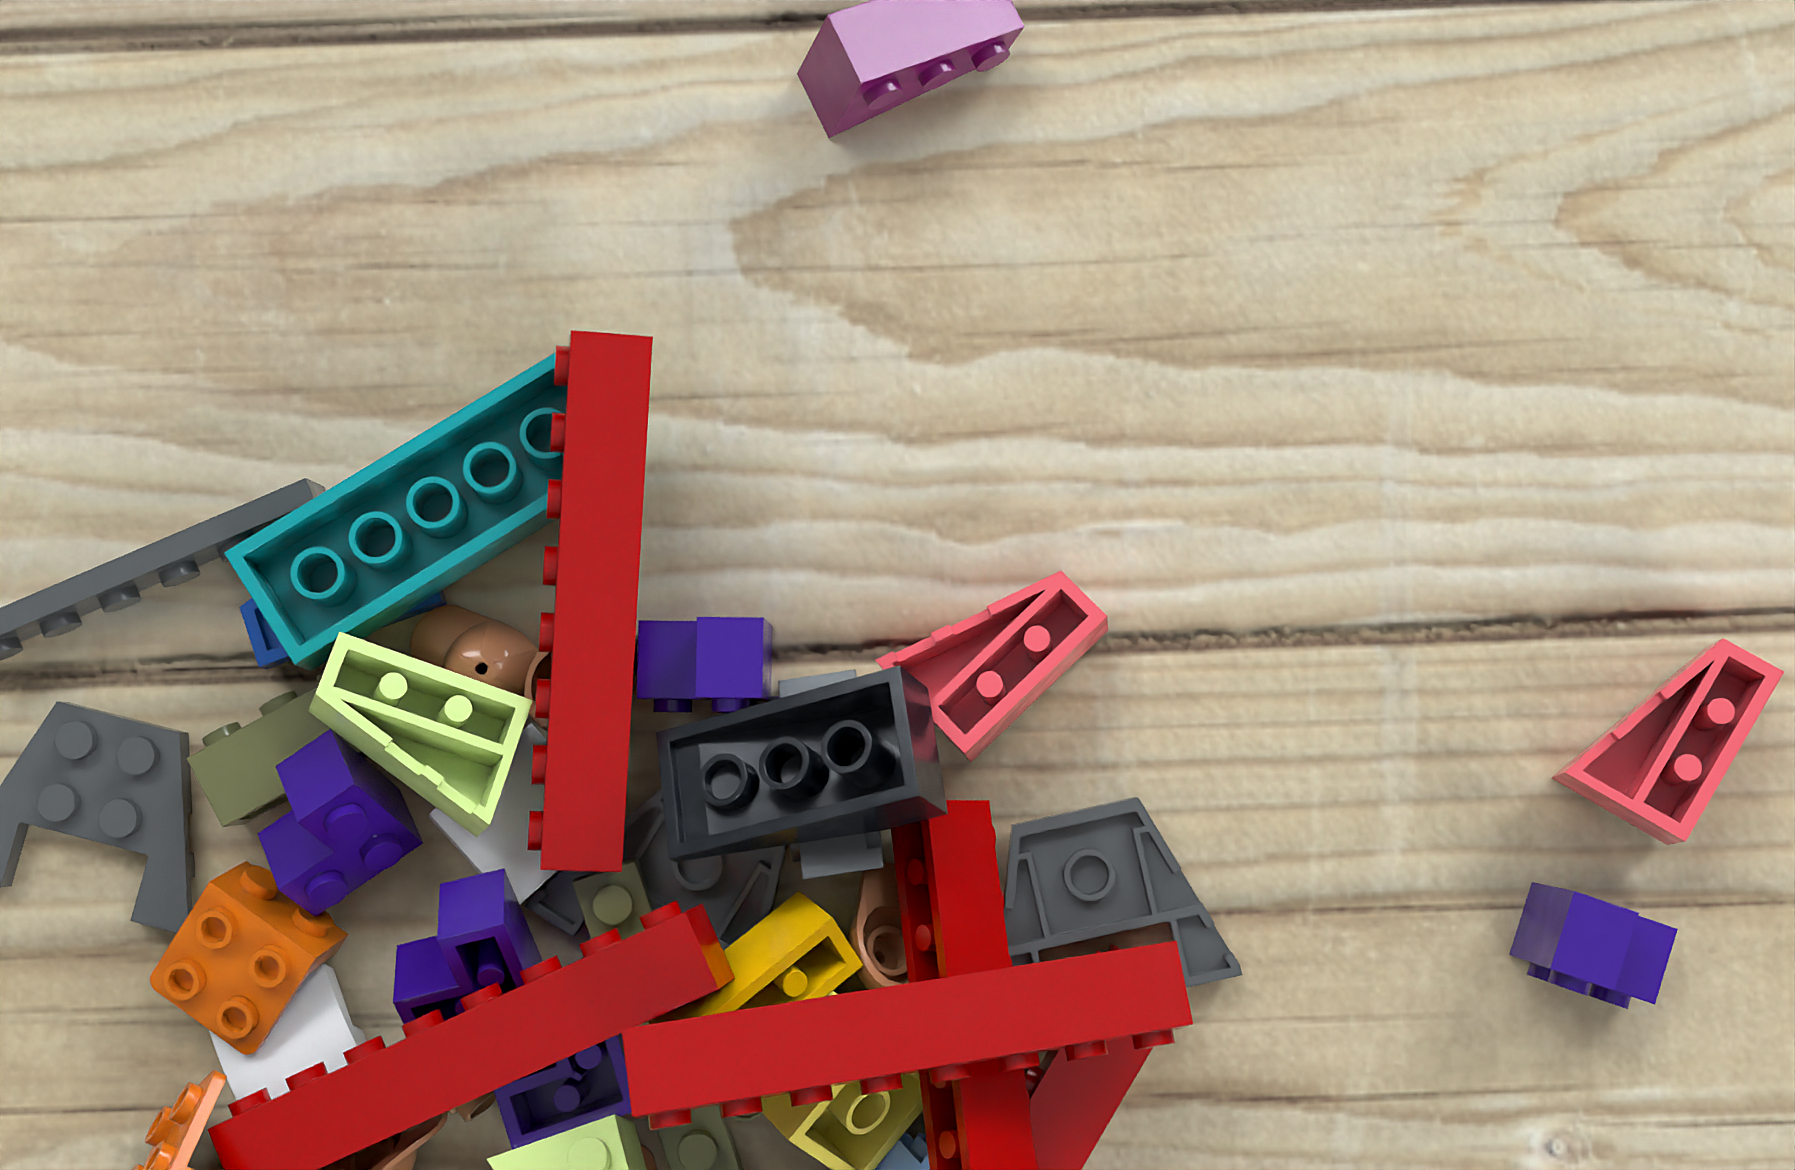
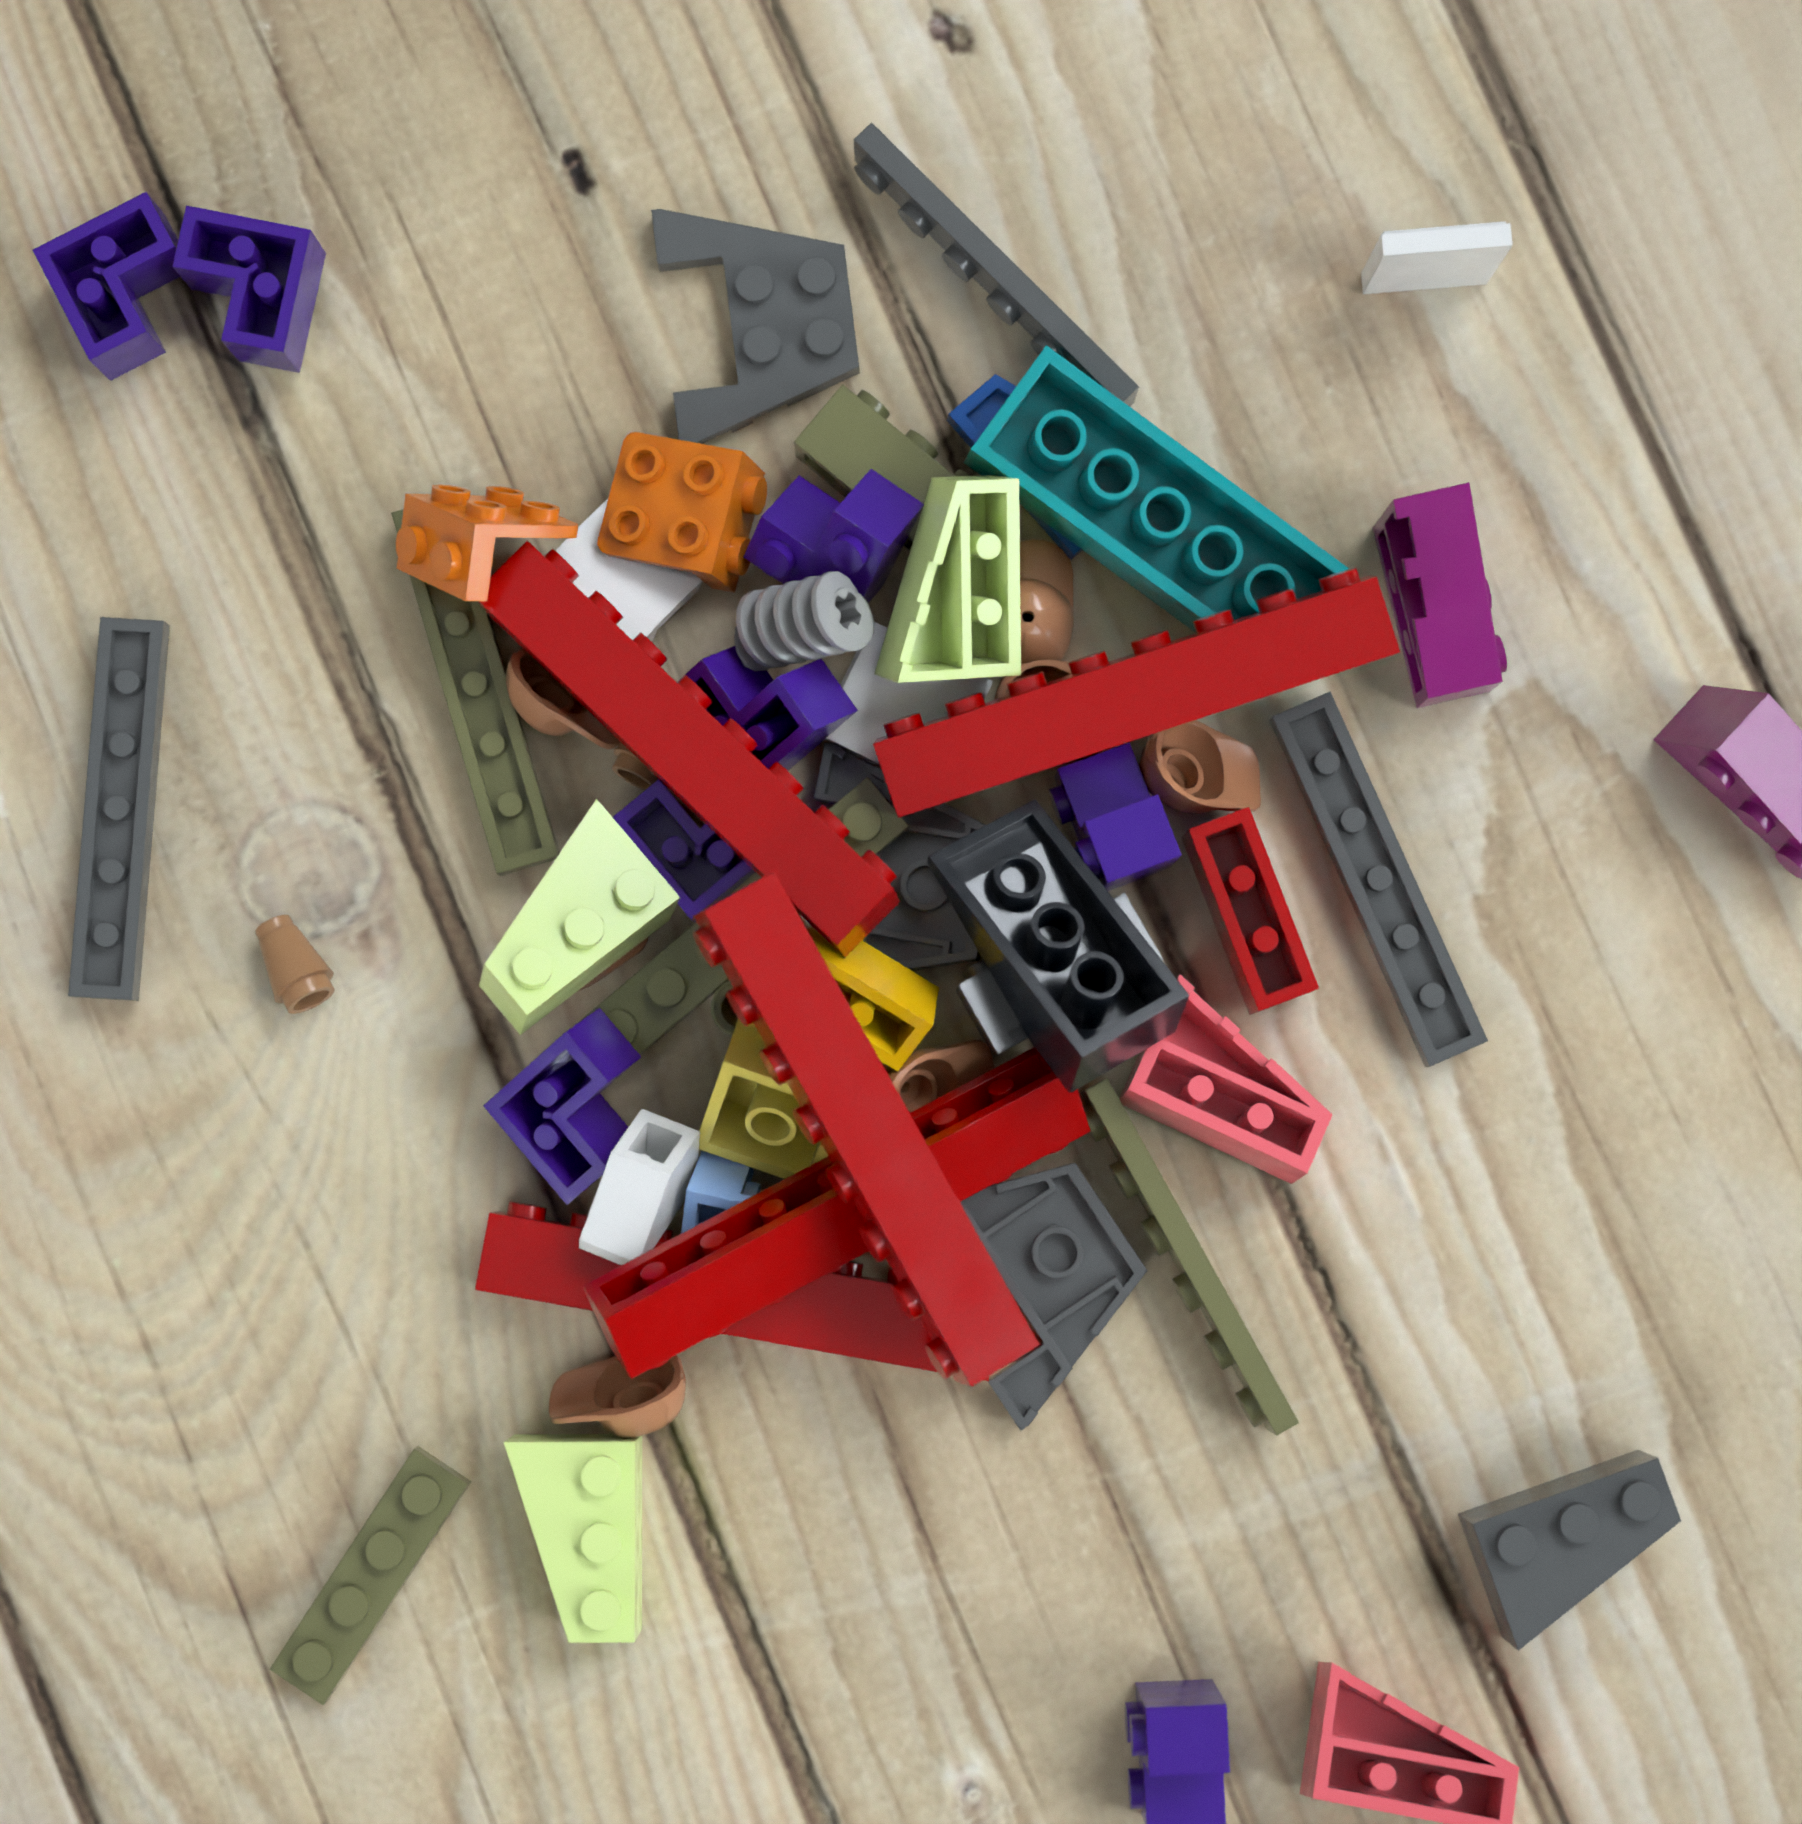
camera: 70 degrees right, 0 degrees up
(298, 153) = (1436, 257): none -> white tile
(396, 890) = (801, 622): none -> light grey piece
(615, 276) = (1440, 595): none -> magenta wedge
(691, 562) = (1201, 770): none -> nougat cap
(840, 570) = (1249, 910): none -> red brick
(857, 439) = (1378, 880): none -> dark grey plate
(1166, 754) = (1198, 1281): none -> olive plate
(1526, 509) = (1565, 1539): none -> dark grey wedge

